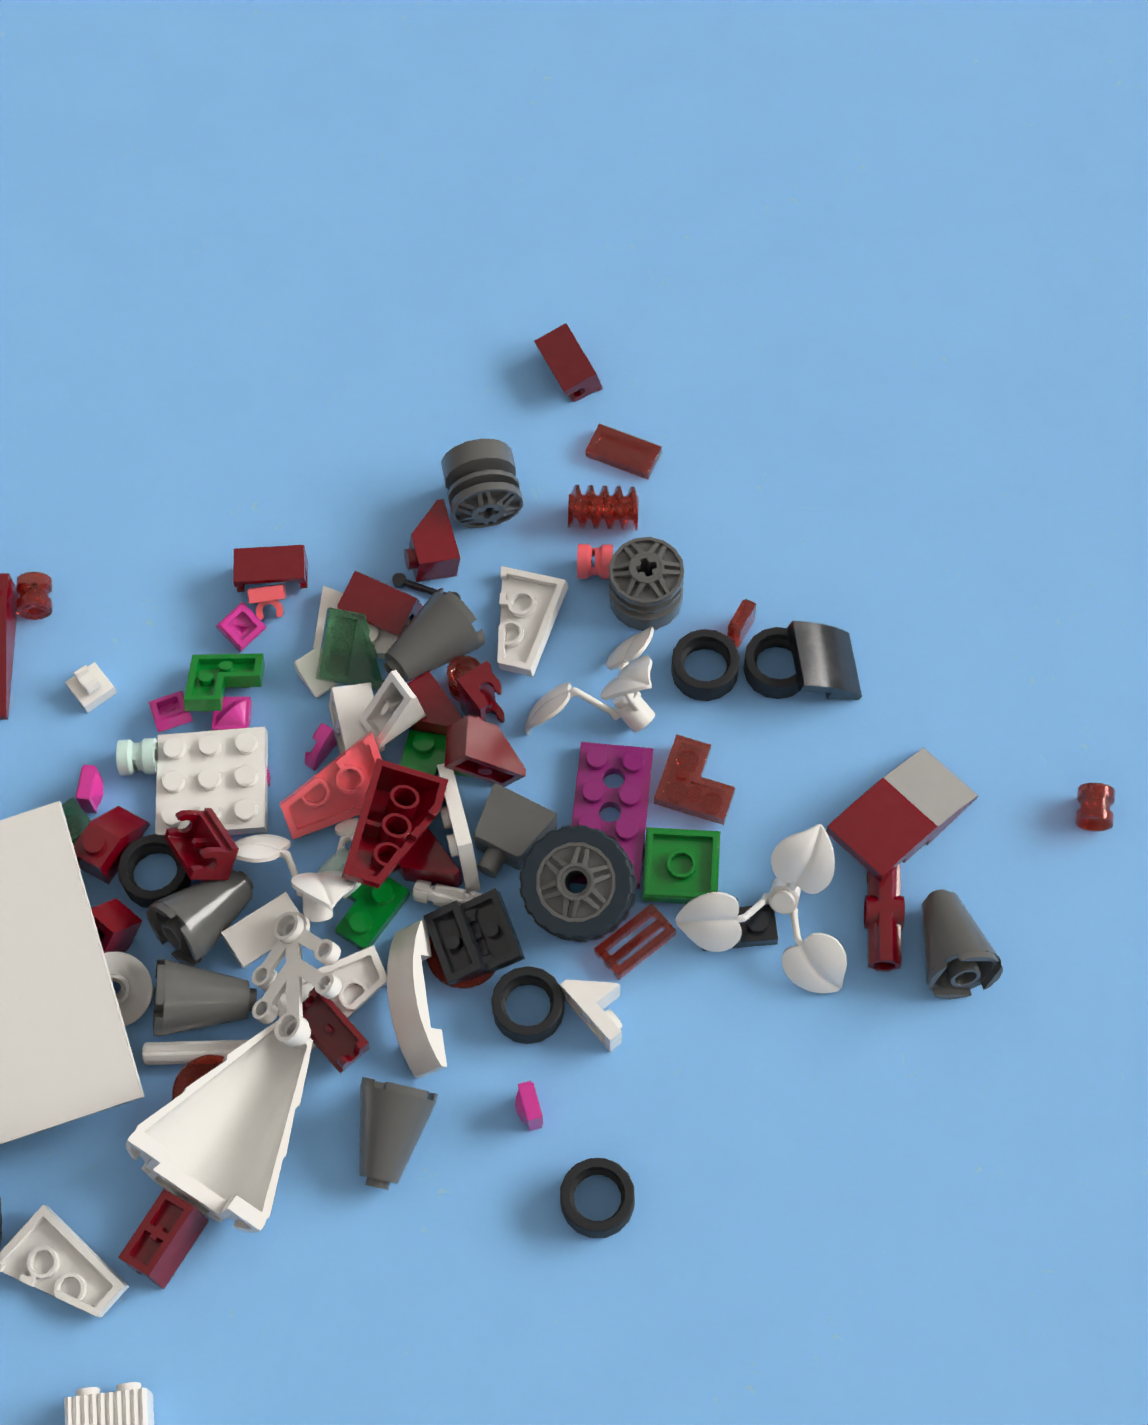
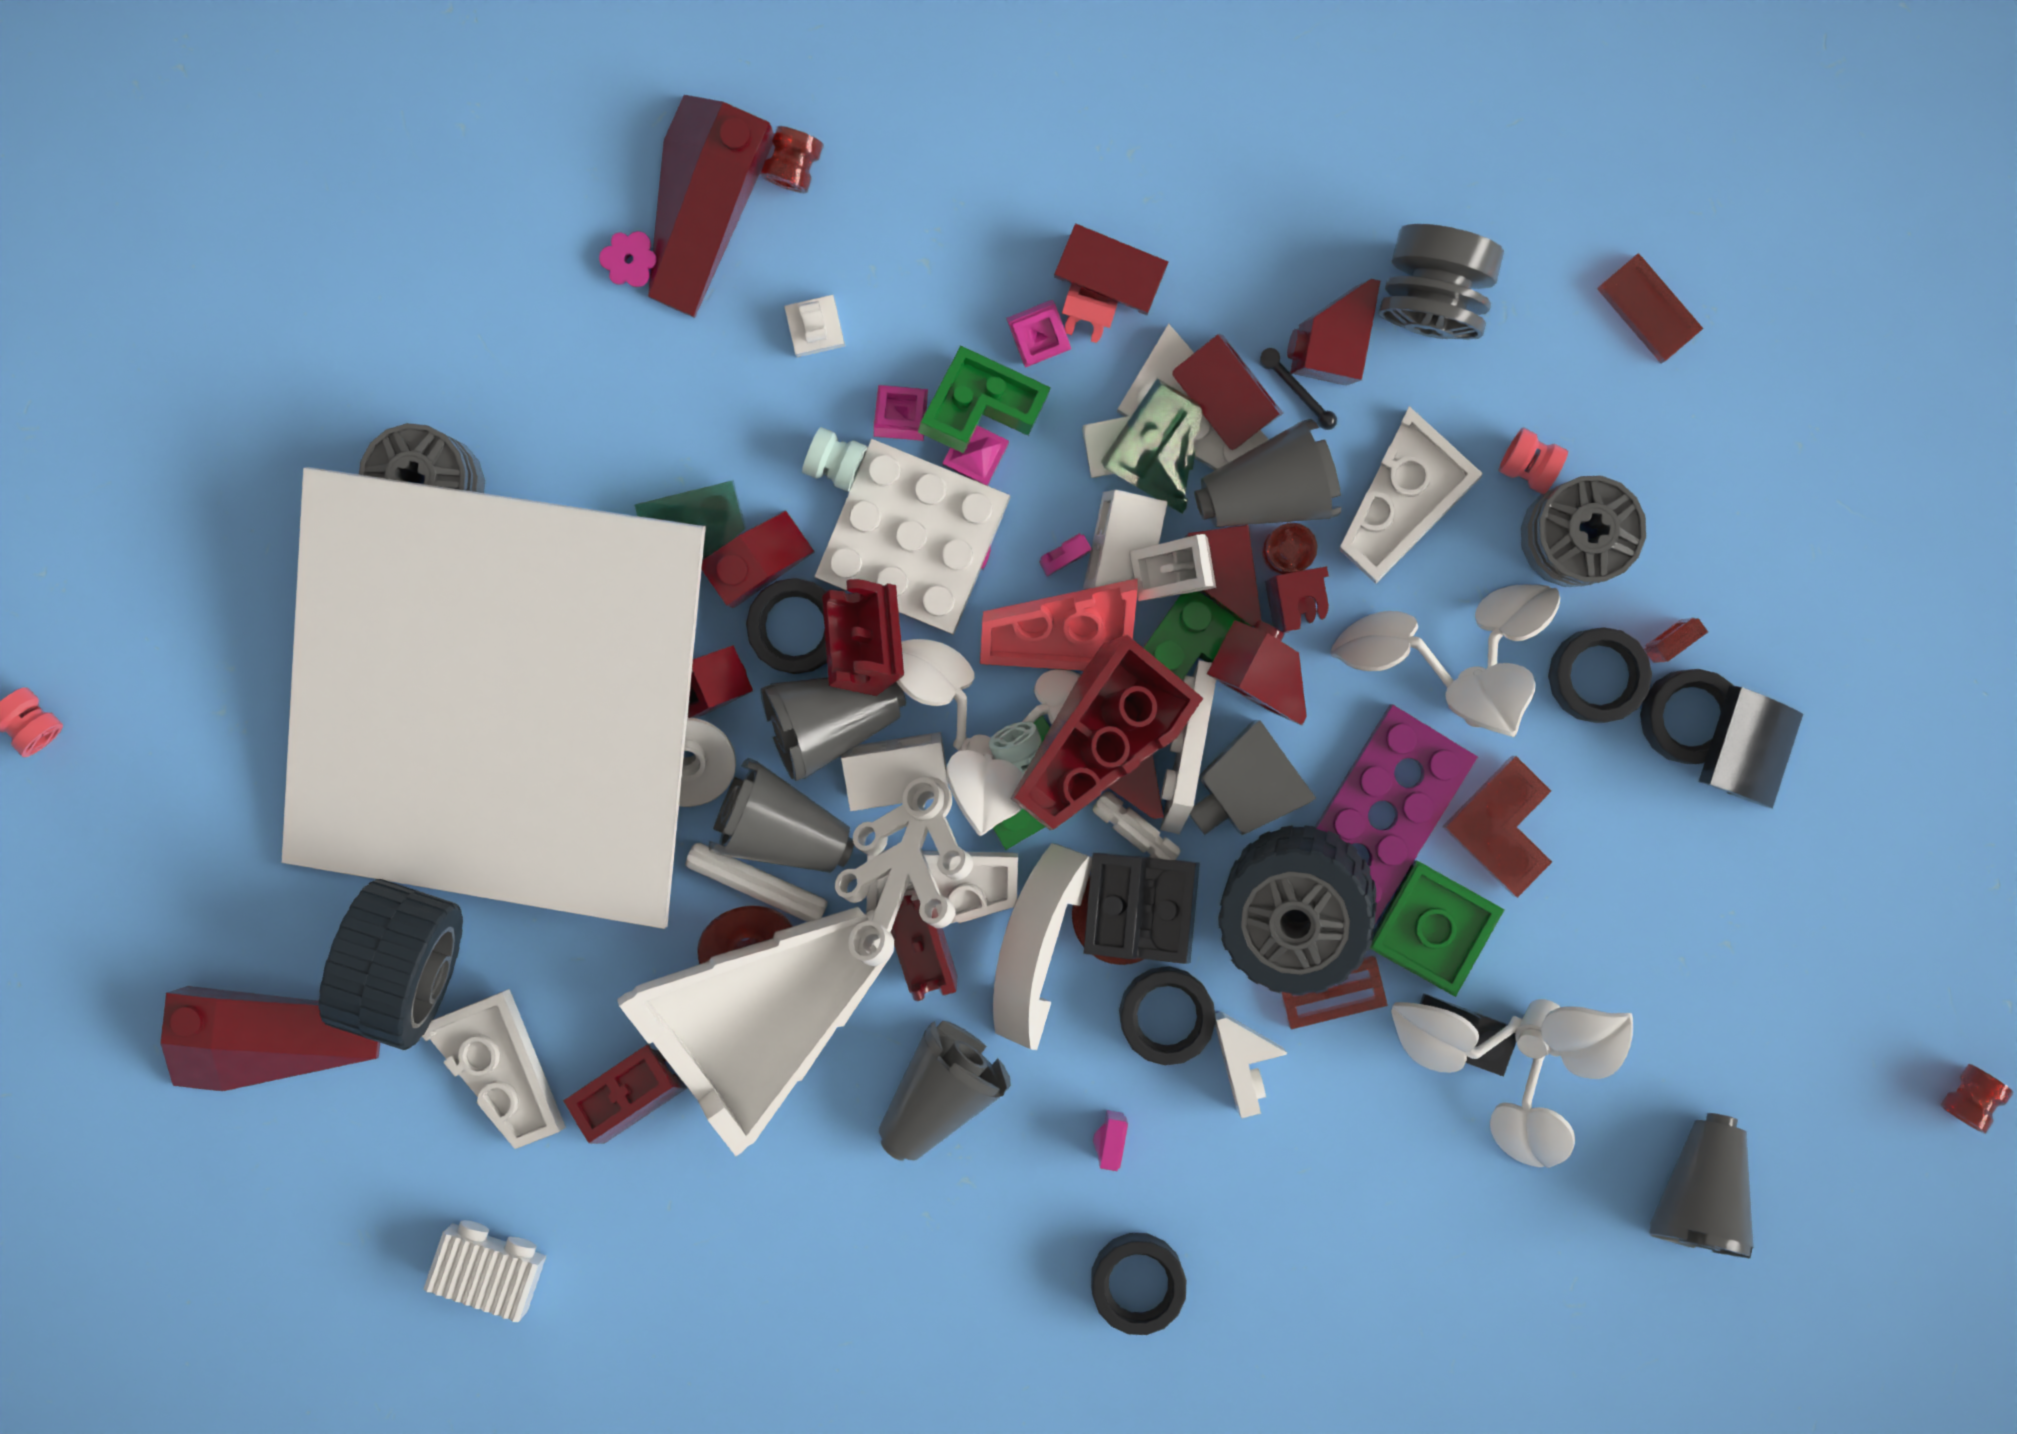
camera: 20 degrees right, 25 degrees up
(89, 789) = (758, 476): dark pink tile -> none
(568, 363) = (1643, 140): dark red hinge -> none
(603, 506) = (1583, 387): clear red piece -> none
(884, 921) = (1647, 1106): dark red piece -> none
(901, 813) = (1737, 995): dark red slope -> none

